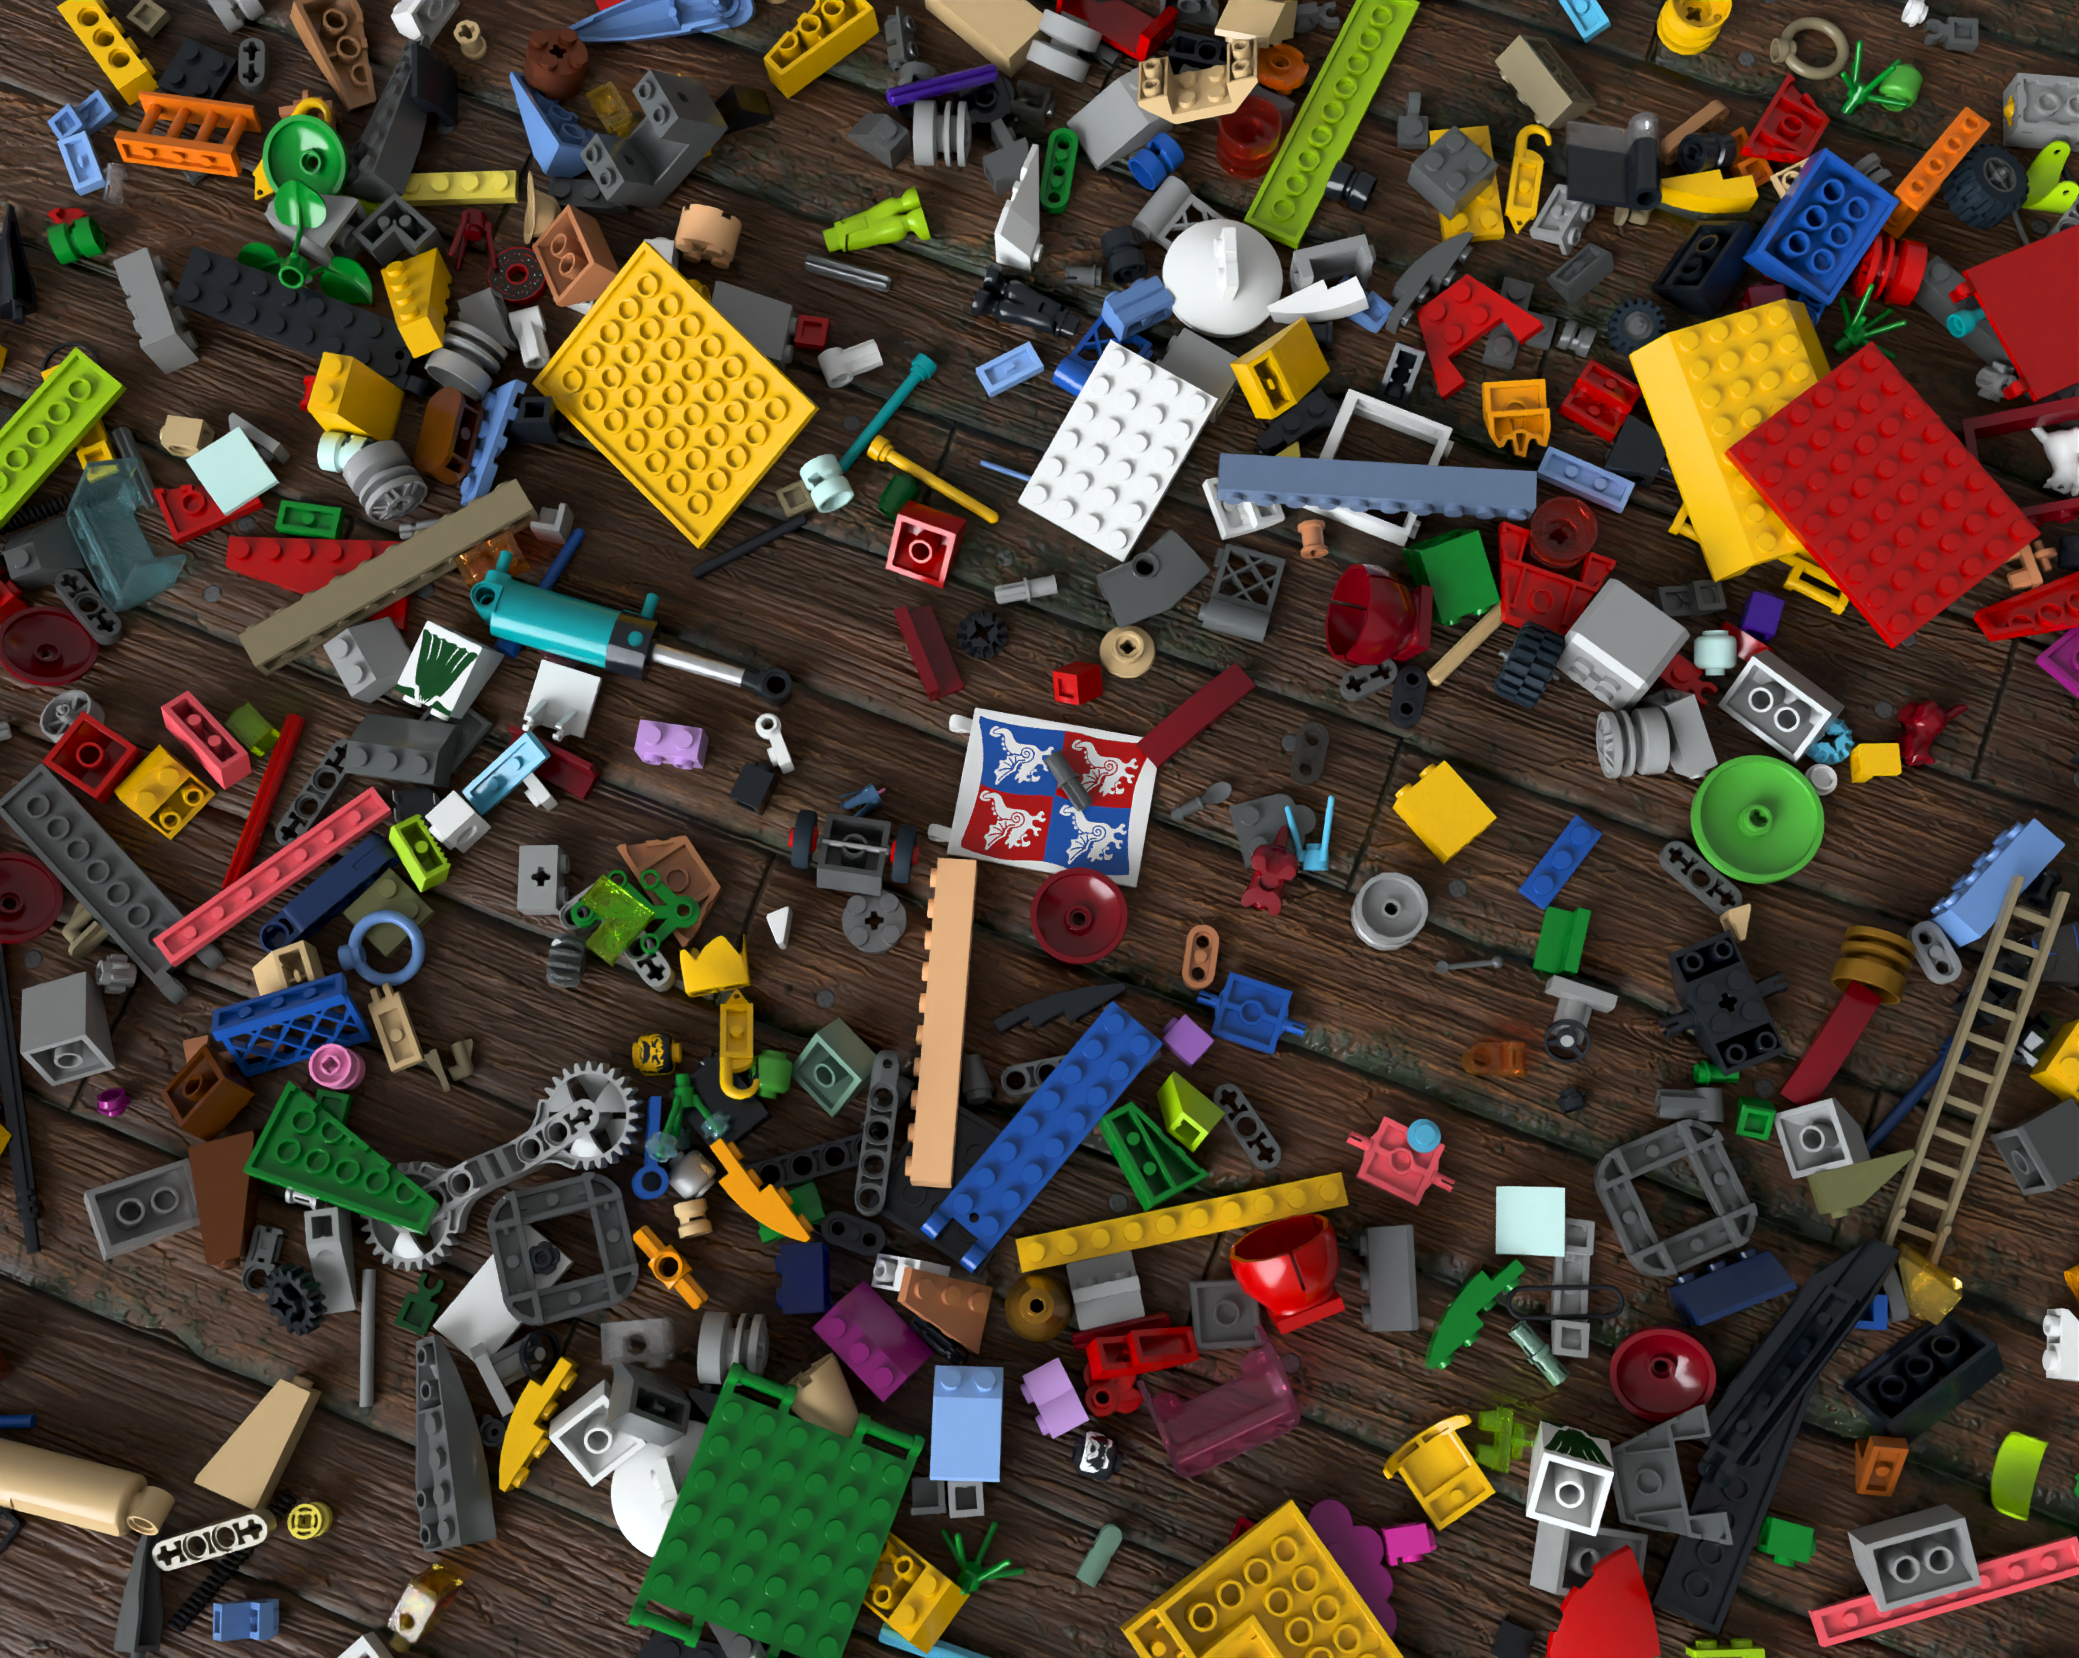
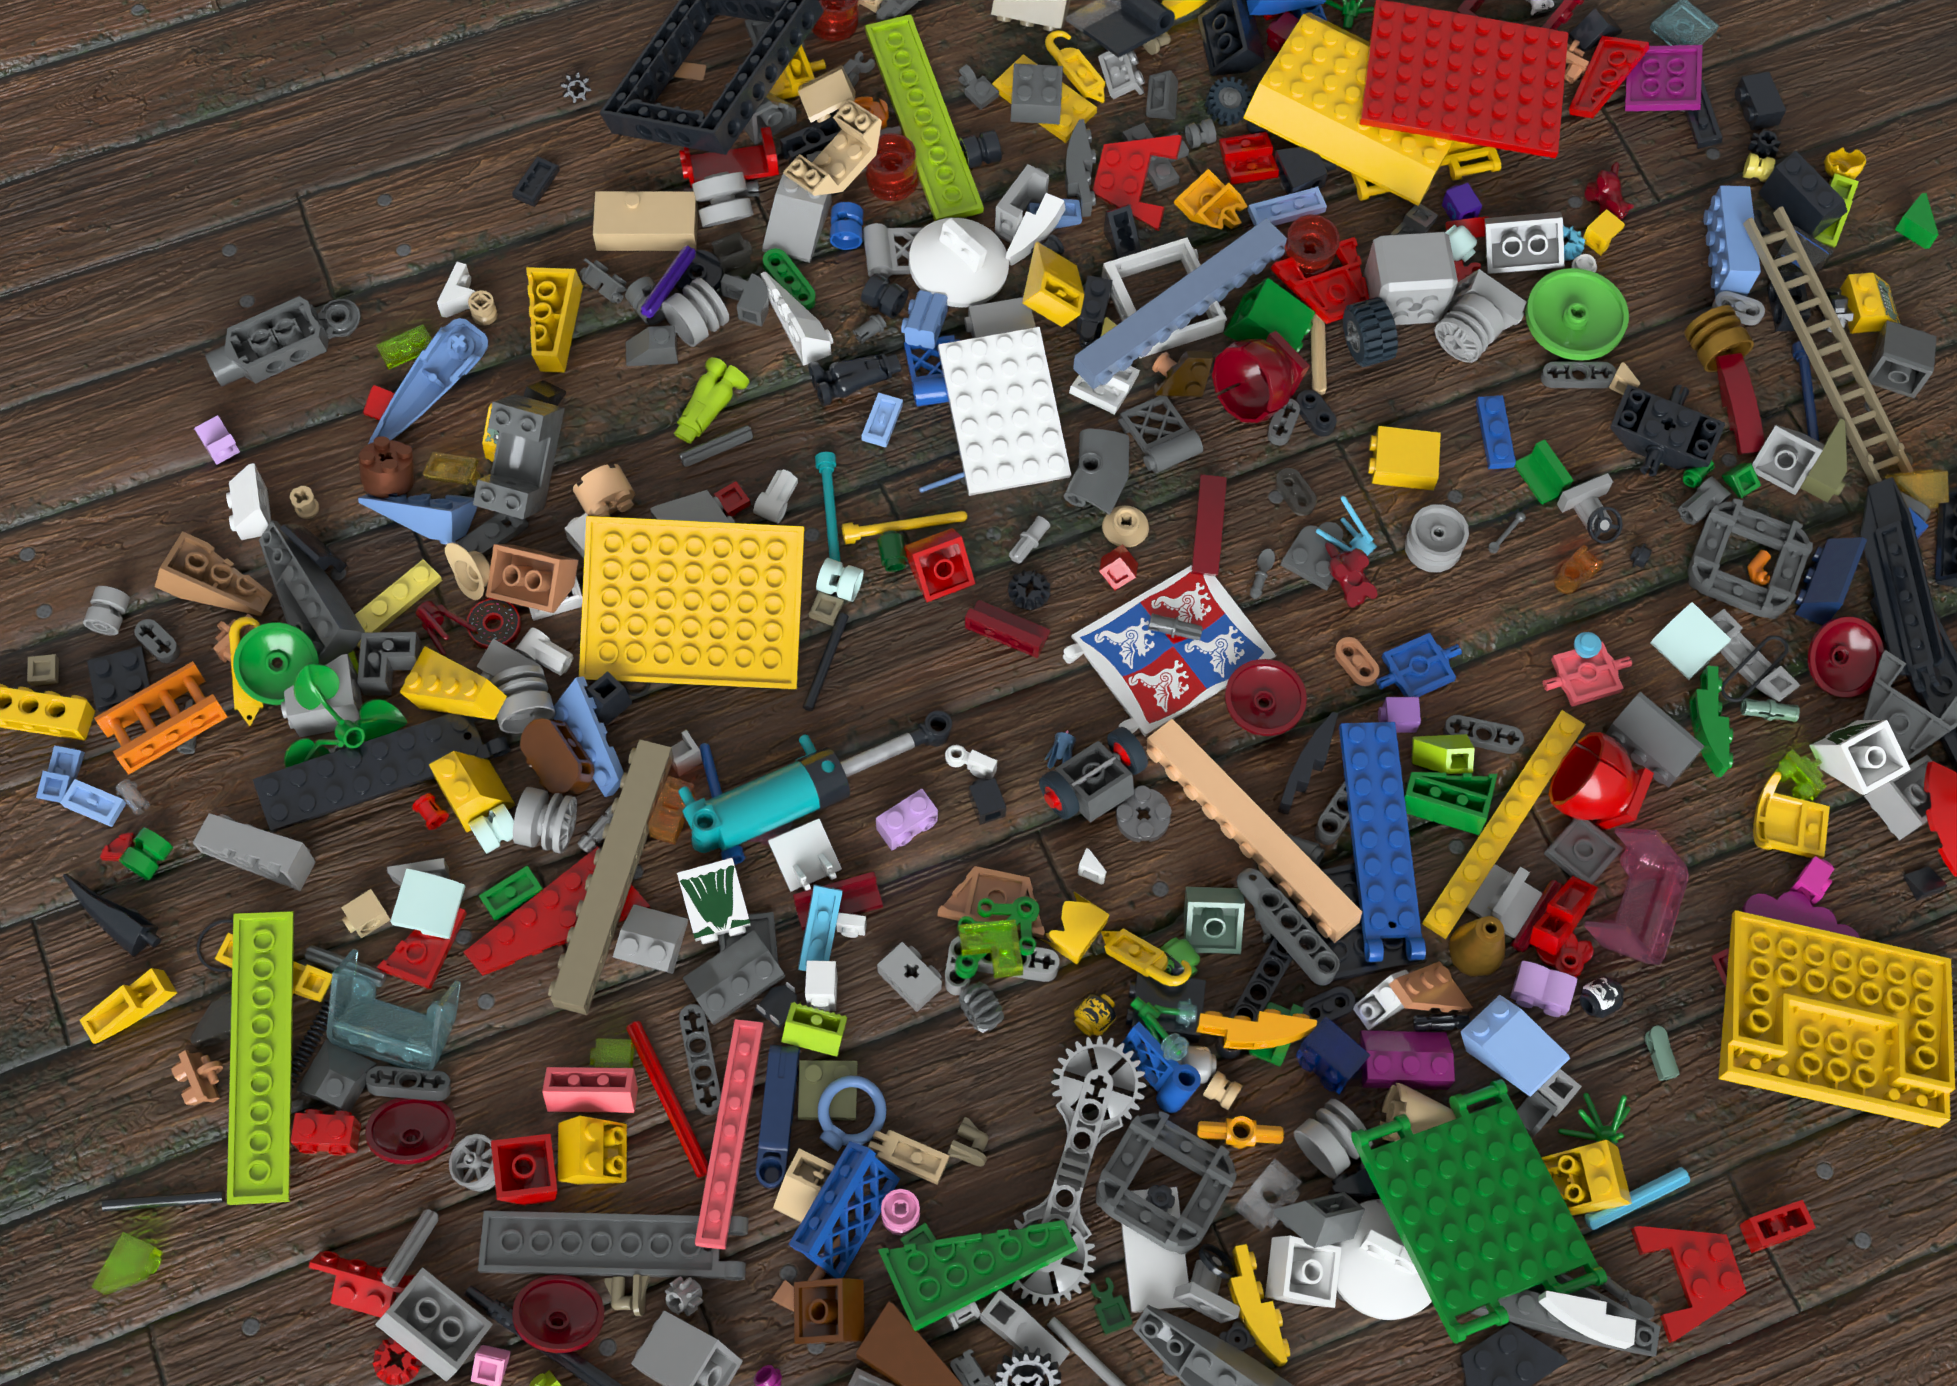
camera: 50 degrees left, 10 degrees down
(1314, 559) = (1187, 376): none -> dark brown wing
(1672, 1213) = (1756, 571): none -> orange arm

